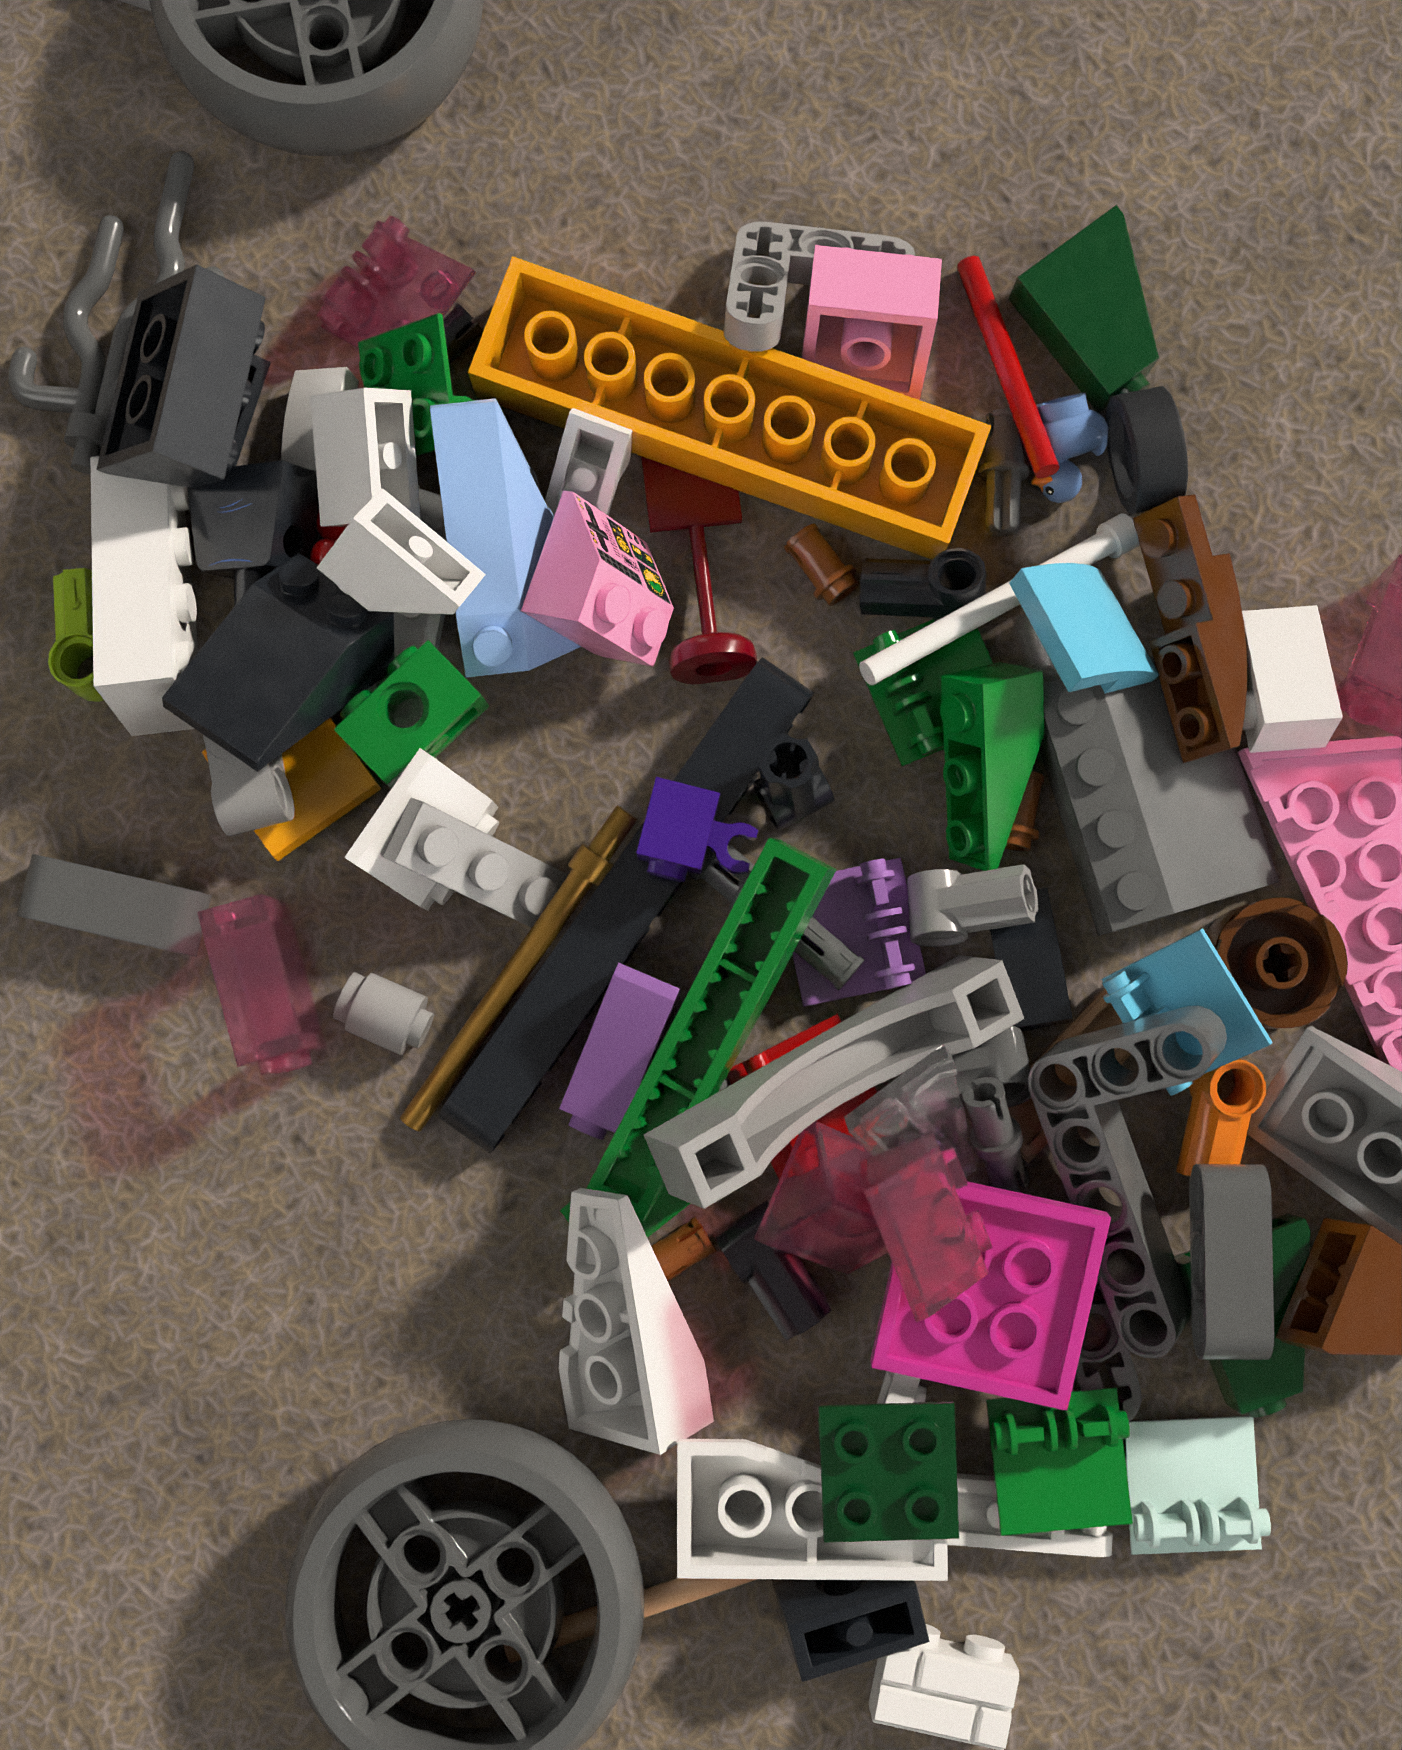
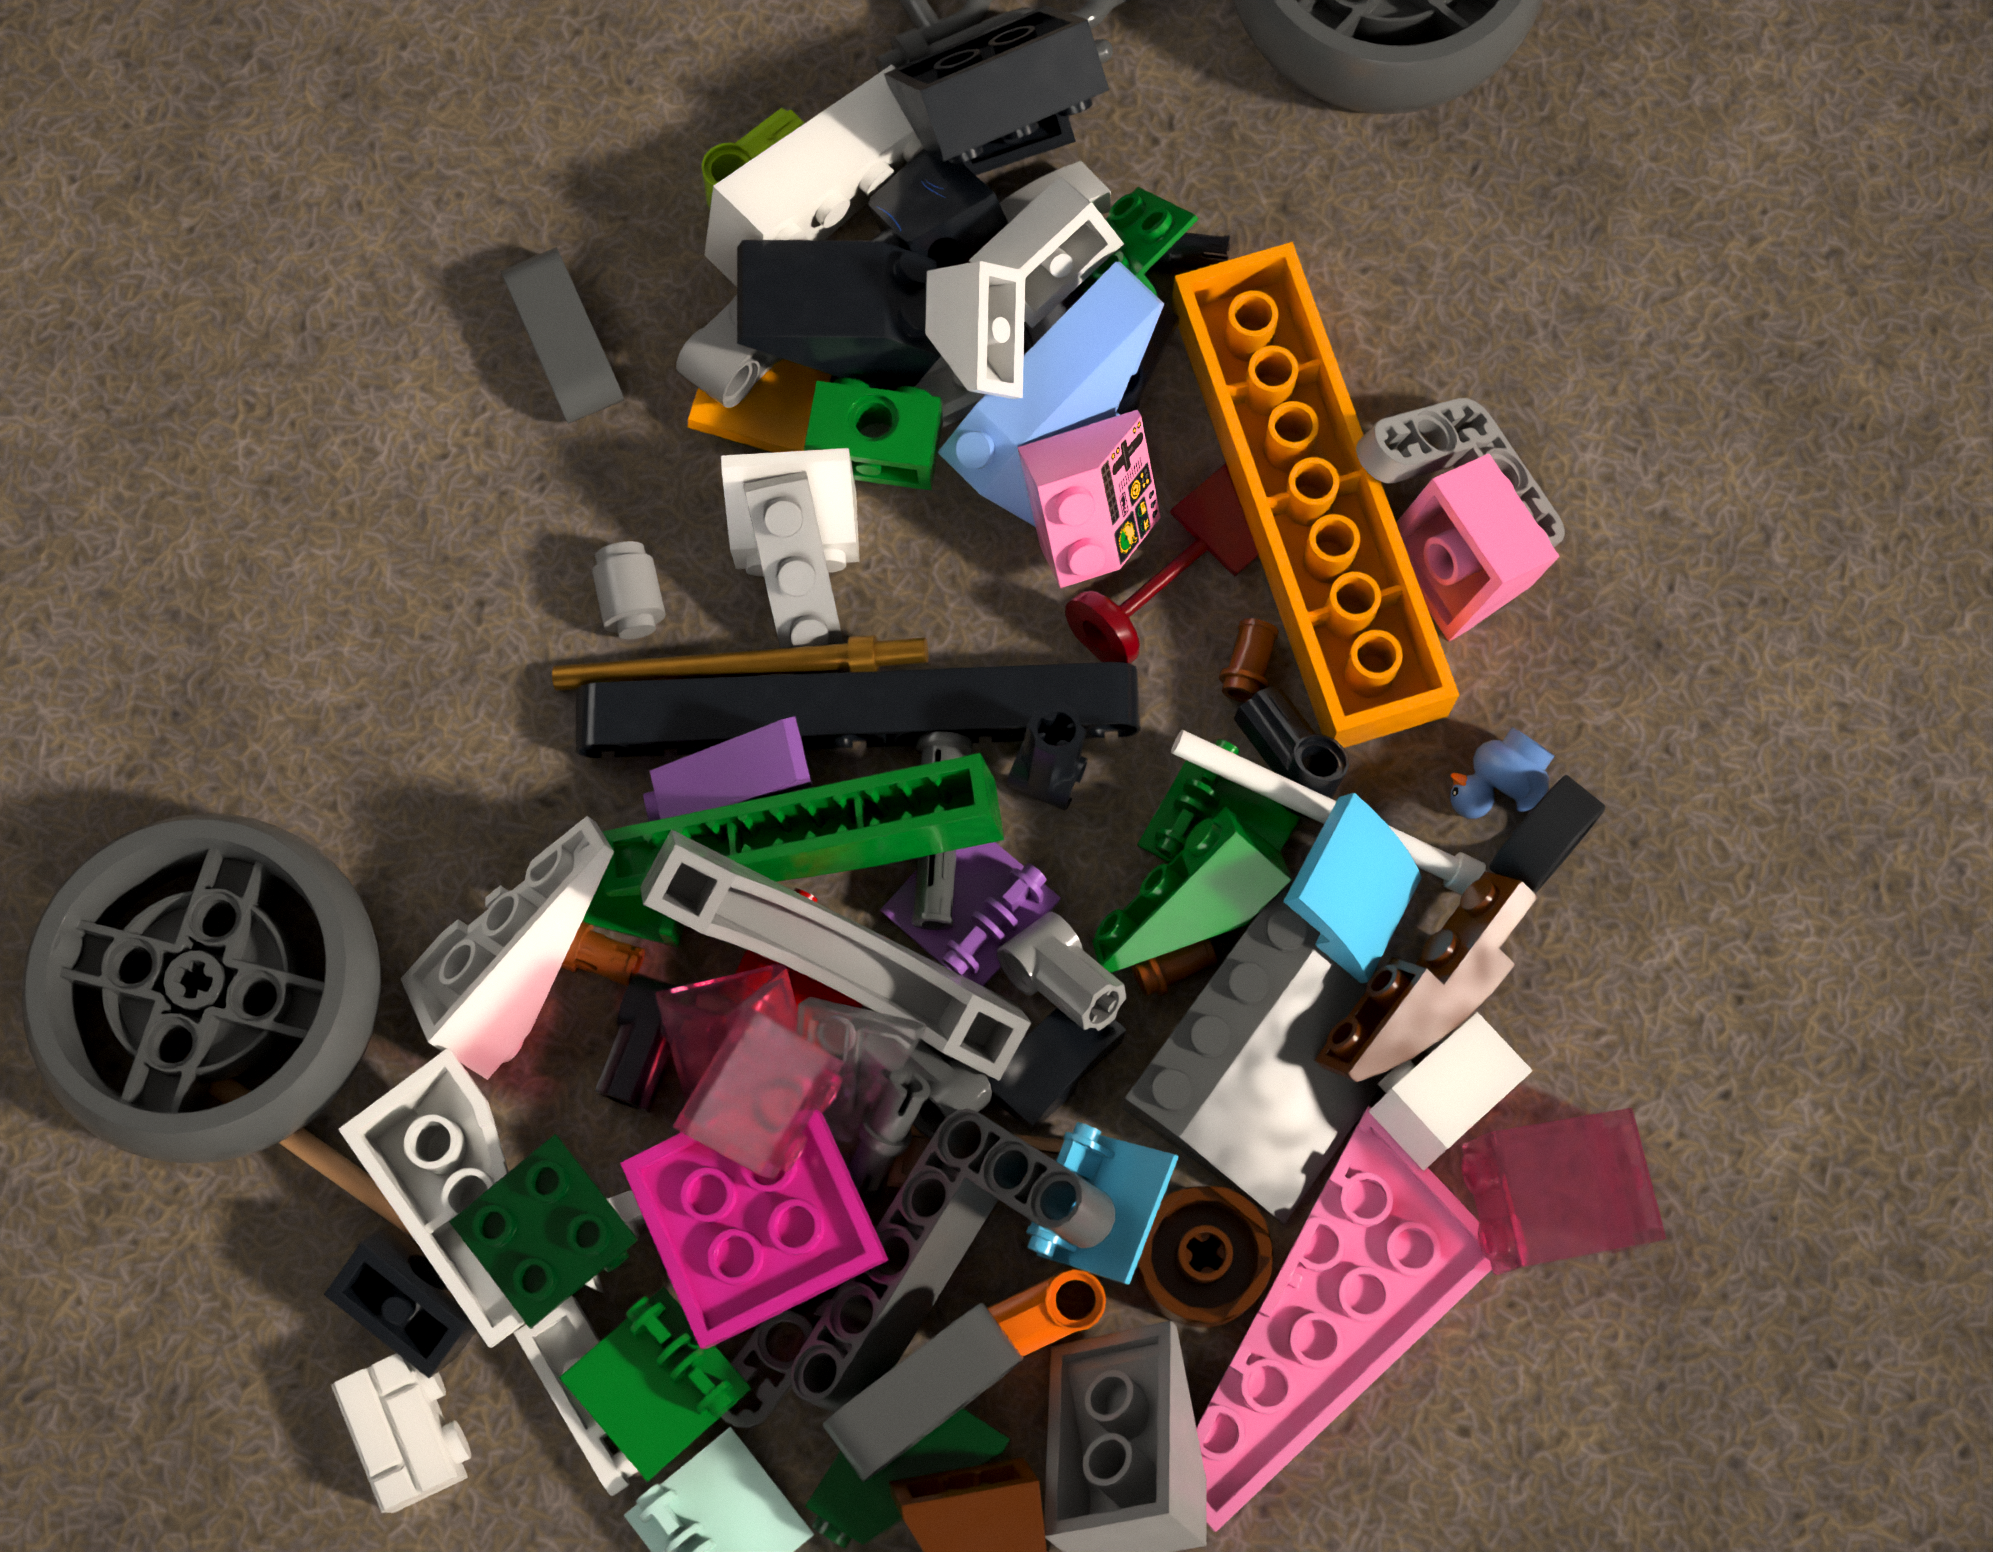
camera: 55 degrees right, 10 degrees down
(262, 984) = (581, 479): clear pink window -> none
(394, 288) = (1211, 185): clear pink hinge -> none
(590, 460) = (1184, 421): white slope -> none
(683, 827) = (942, 698): dark purple brick -> none
(1003, 474) = (1442, 746): dark grey axle -> none
(1008, 367) = (1527, 683): red bar -> none
(1092, 310) = (1631, 711): dark green slope -> none

